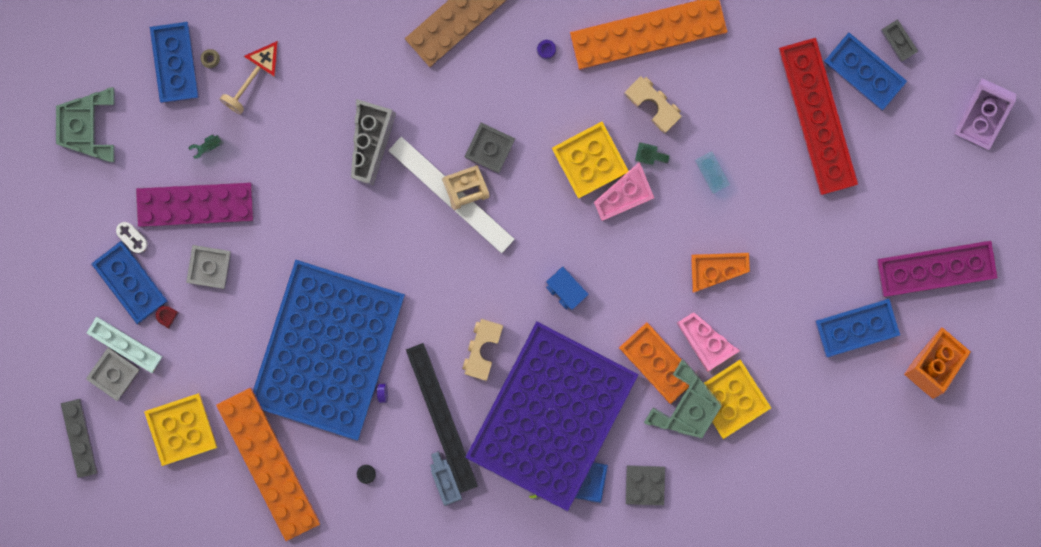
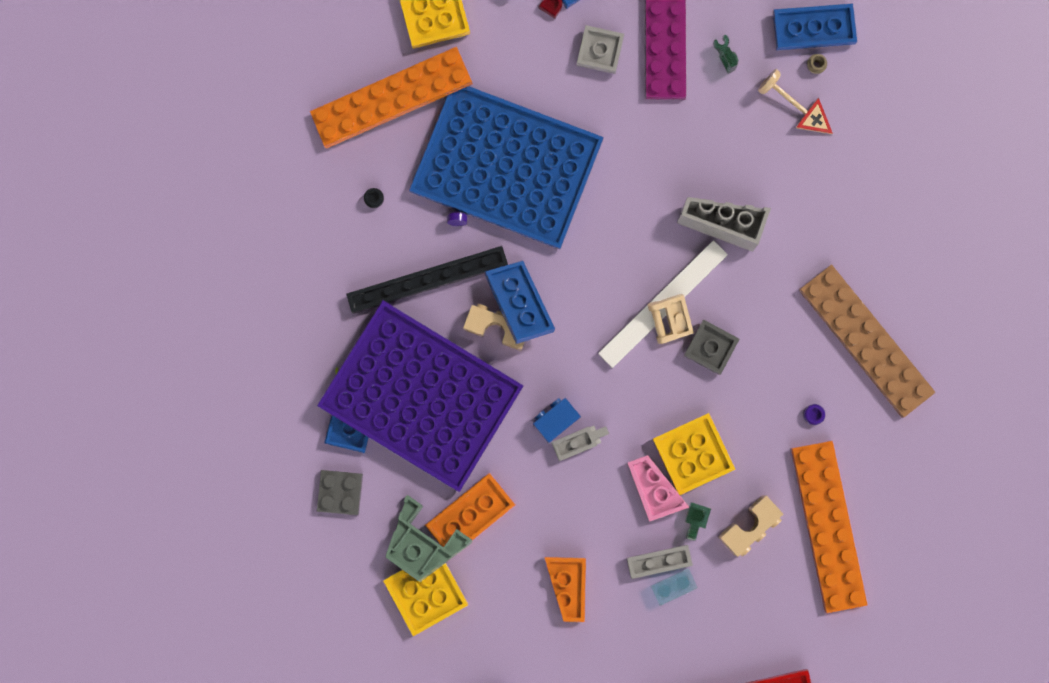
camera: 90 degrees right, 5 degrees down
(444, 480) = (361, 278): sand blue hinge -> none
(459, 329) = (519, 302): none -> blue plate
(585, 267) = (578, 442): none -> light grey hinge
(690, 186) = (659, 561): none -> light grey plate
(707, 343) = (489, 568): bright pink wing -> none

